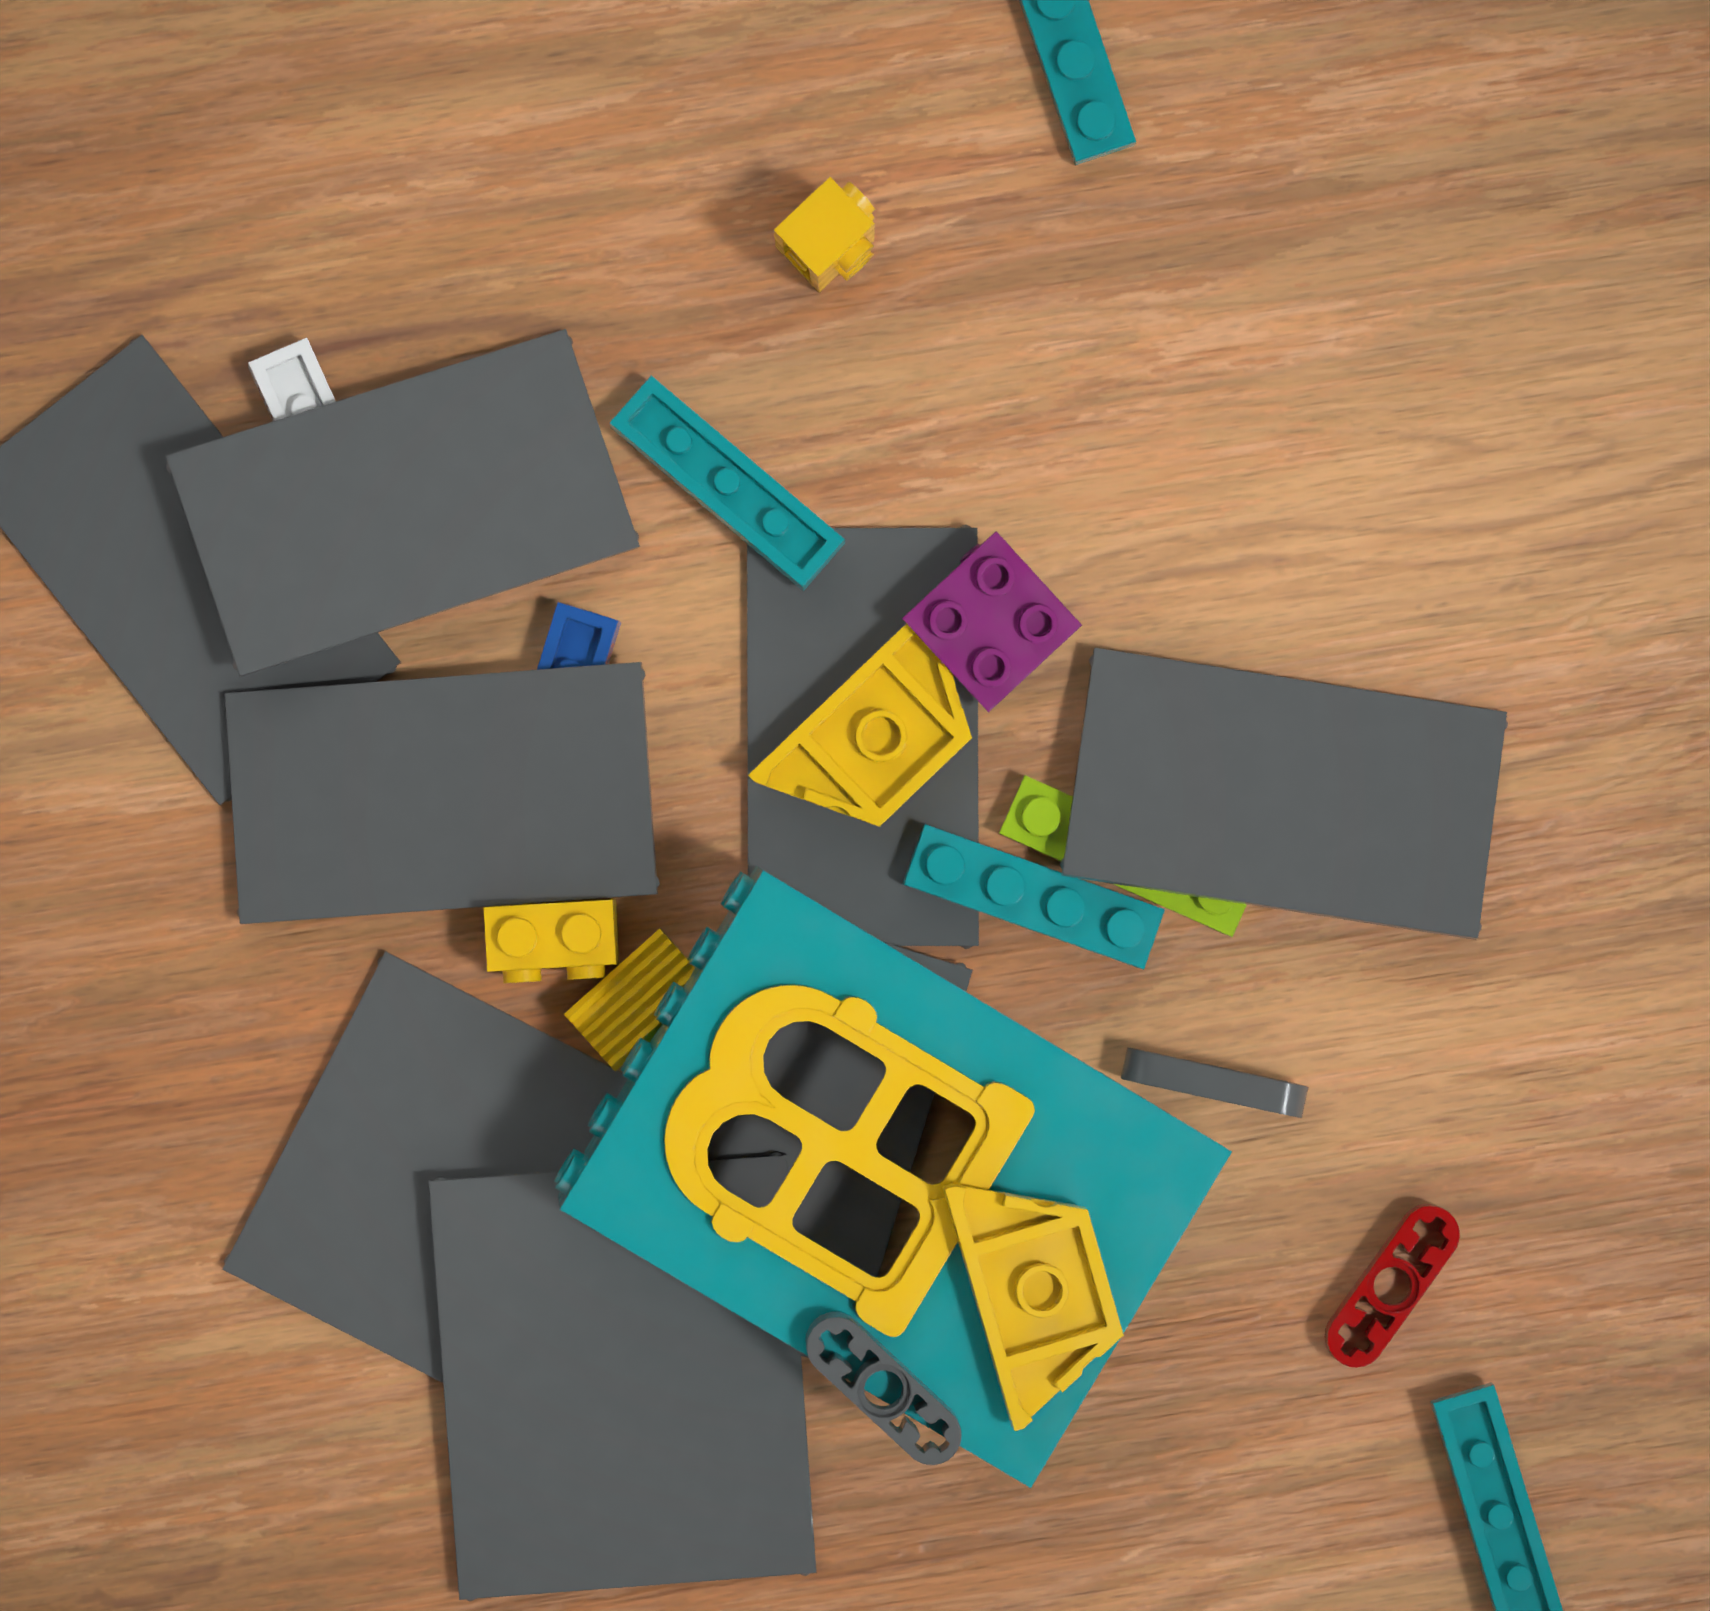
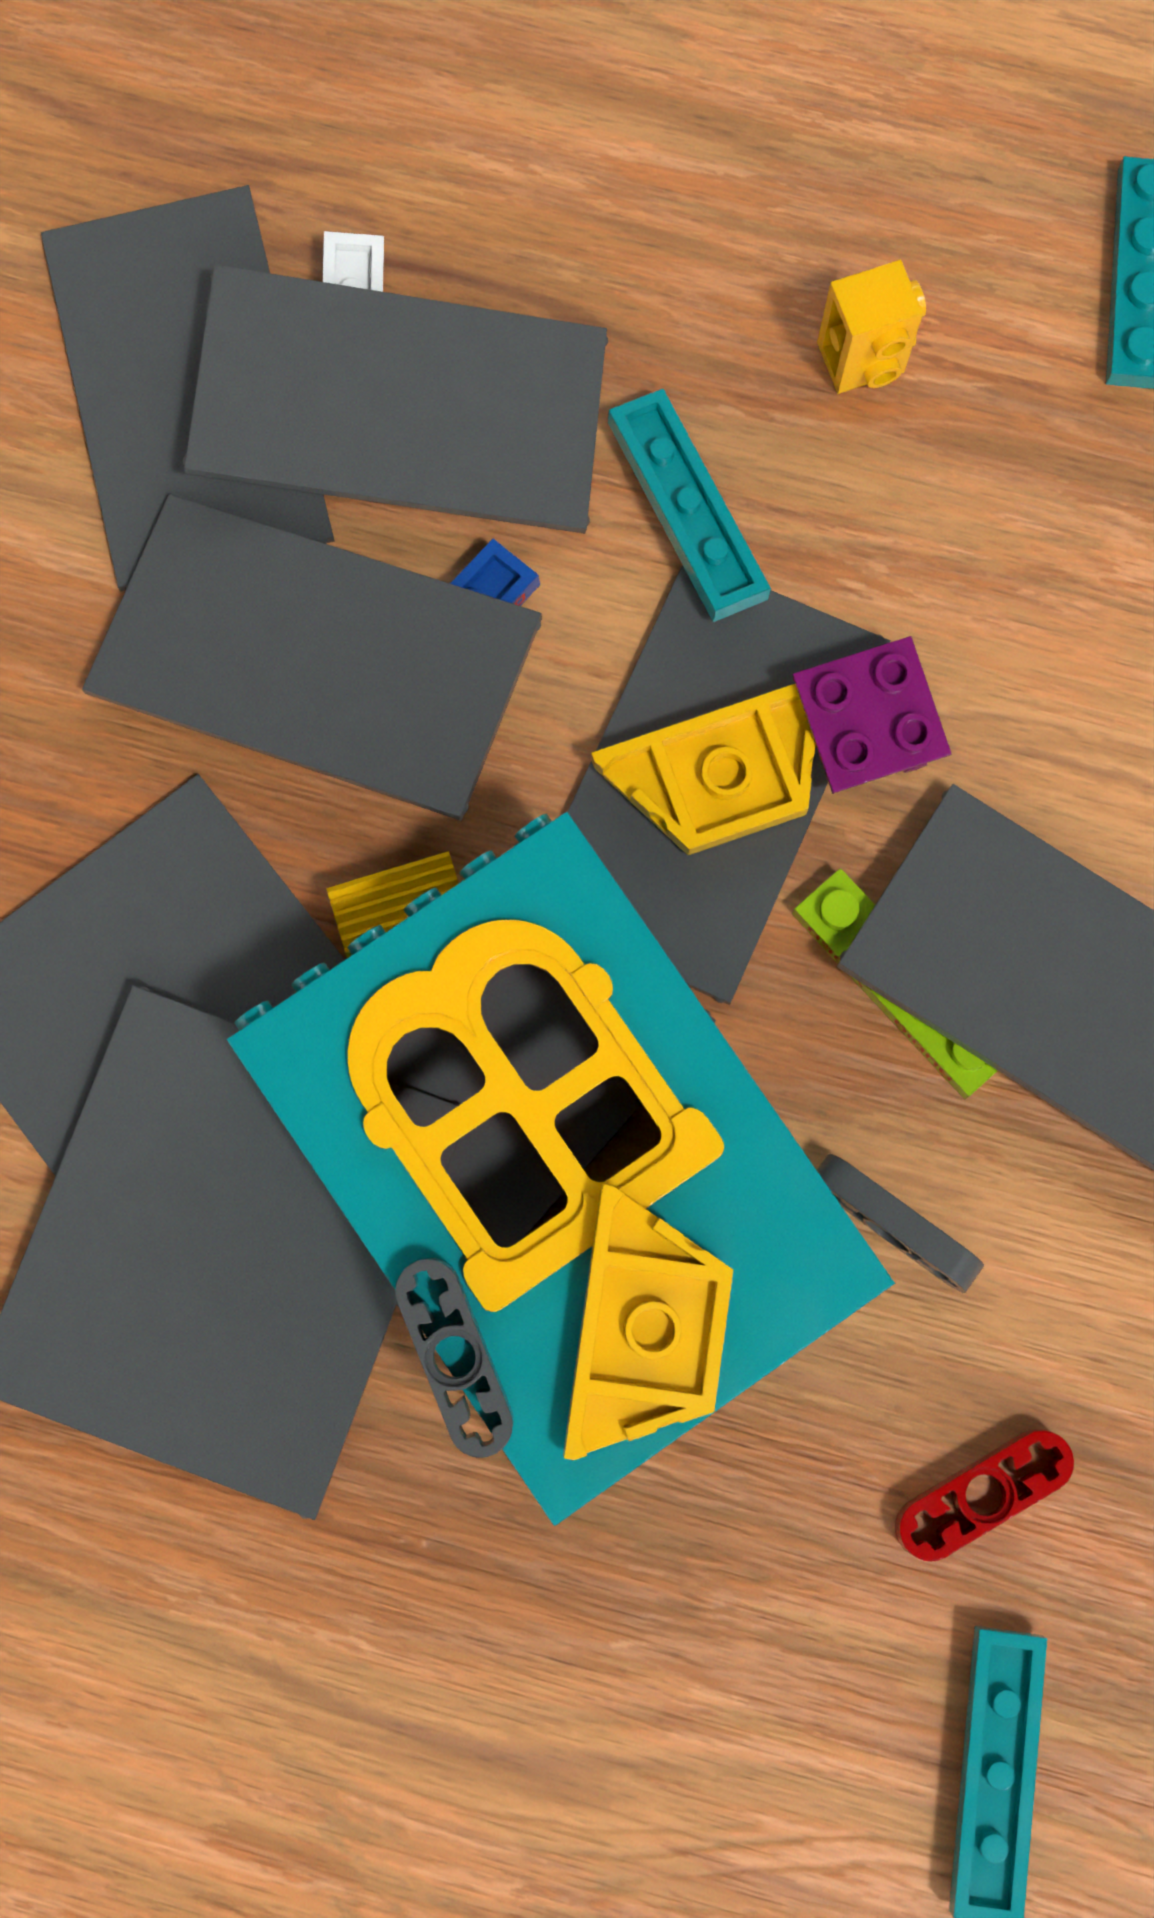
camera: 25 degrees right, 10 degrees down
(551, 936) = (348, 818): yellow brick -> none
(1033, 896) = (801, 980): teal plate -> none

